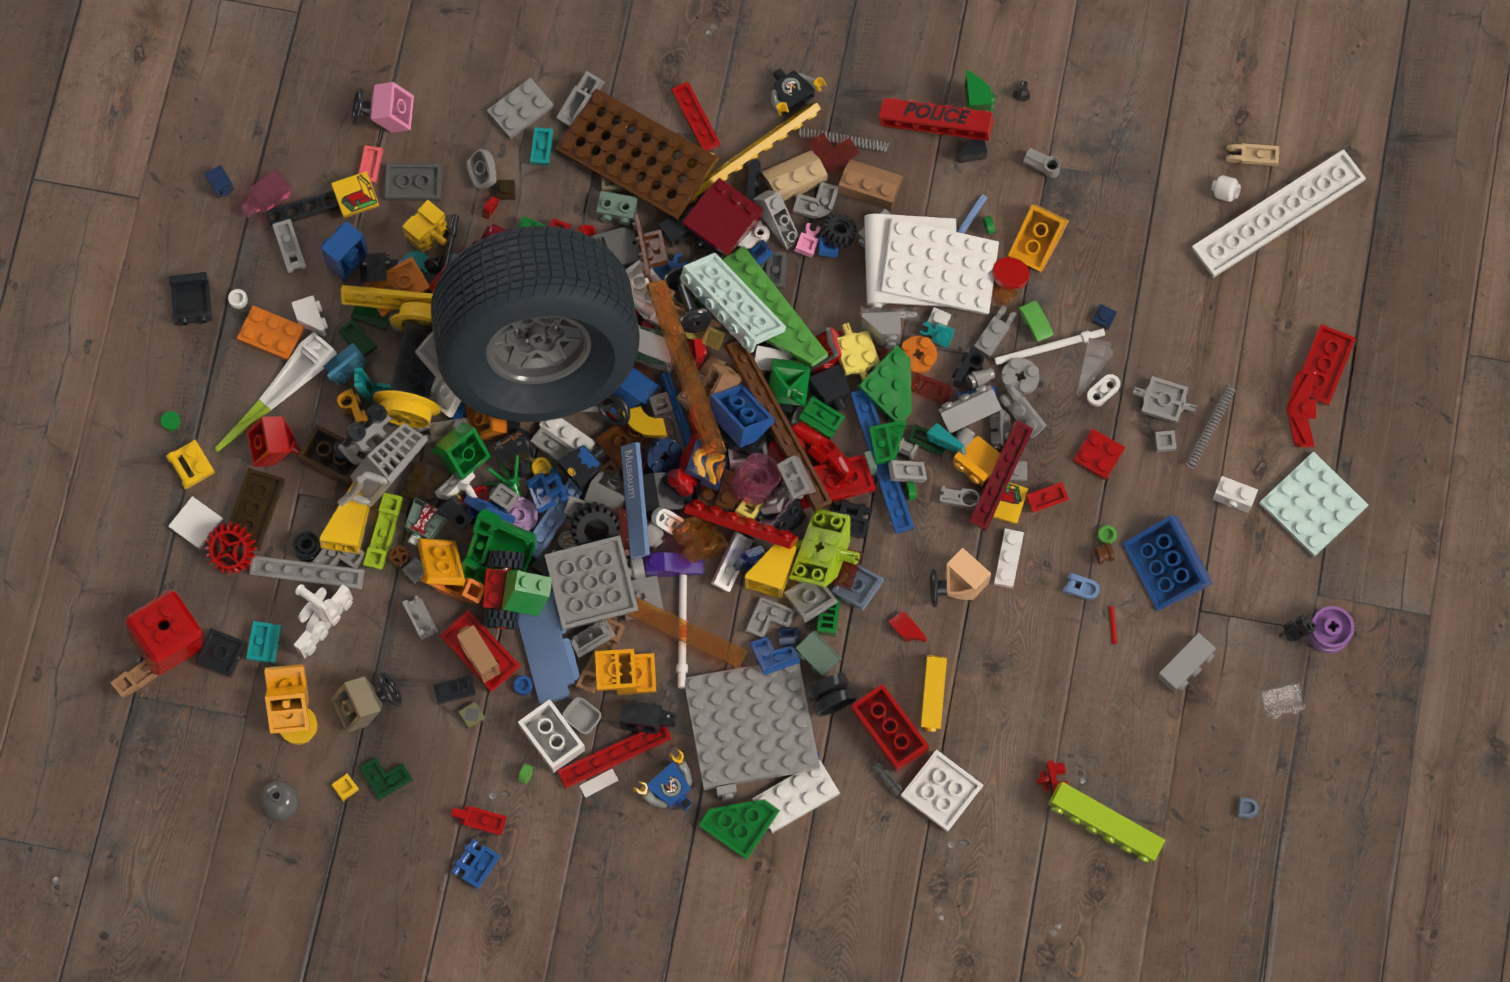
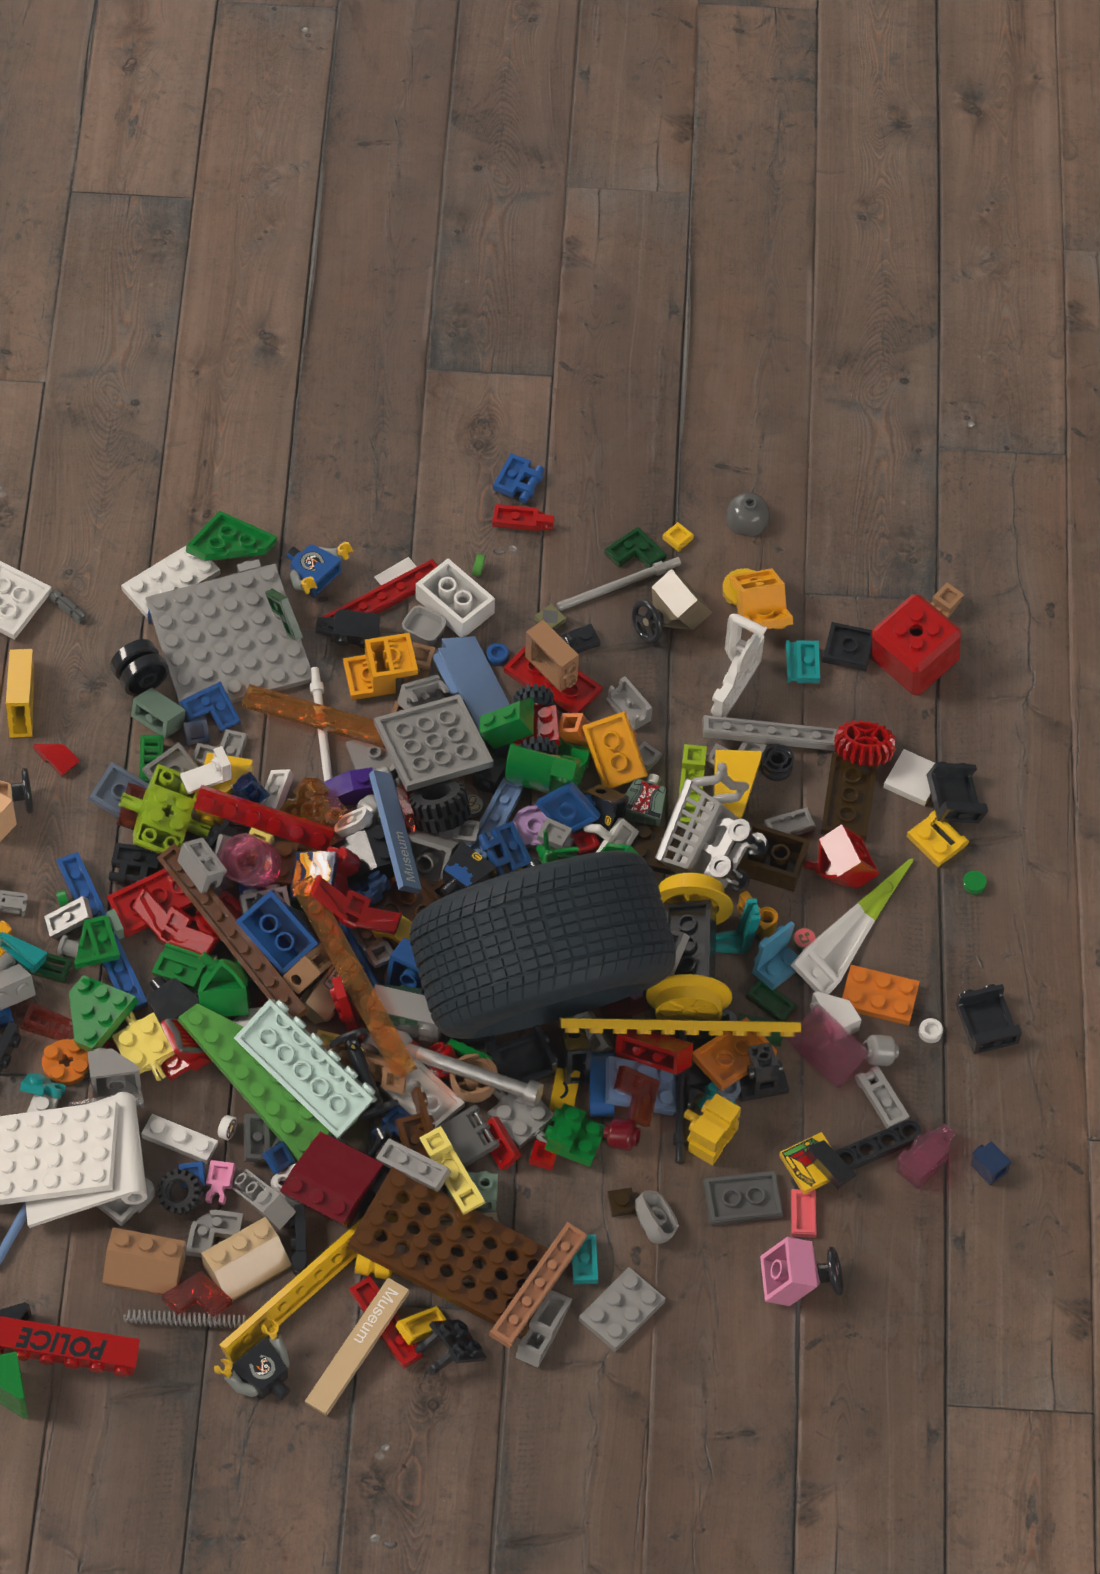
camera: 170 degrees right, 15 degrees down
(166, 495) = (955, 793): none -> black panel
(282, 282) = (881, 1050): none -> light grey head
(309, 489) = (793, 823): none -> light grey plate
(319, 387) = (803, 937): none -> tile
(320, 286) = (828, 1046): none -> clear pink tile
(342, 185) = (830, 1164): none -> black slope
(344, 250) = (808, 1078): blue brick -> none
(369, 753) = (657, 569): none -> light grey bar
(397, 553) = (668, 759): reddish brown wheel -> none
(490, 207) = (636, 1173): red tile -> none
(579, 121) = (538, 1285): none -> nougat tile
(629, 205) = (458, 1182): none -> light yellow slope
(646, 90) = (457, 1339): none -> black plate
(660, 216) = (413, 1165): none -> light grey plate
(670, 109) = (417, 1326): none -> yellow tile
(677, 425) = (354, 908): none -> red plate
(680, 254) = (382, 1137): none -> black hand
(702, 721) = (281, 606): none -> dark green tile
(719, 98) = (357, 1346): none -> tan tile
(784, 561) = (210, 774): none -> white bracket
(798, 282) = (227, 1127): none -> white tile
(835, 281) = (179, 1139): none -> white plate
(889, 728) = (68, 646): red brick -> none

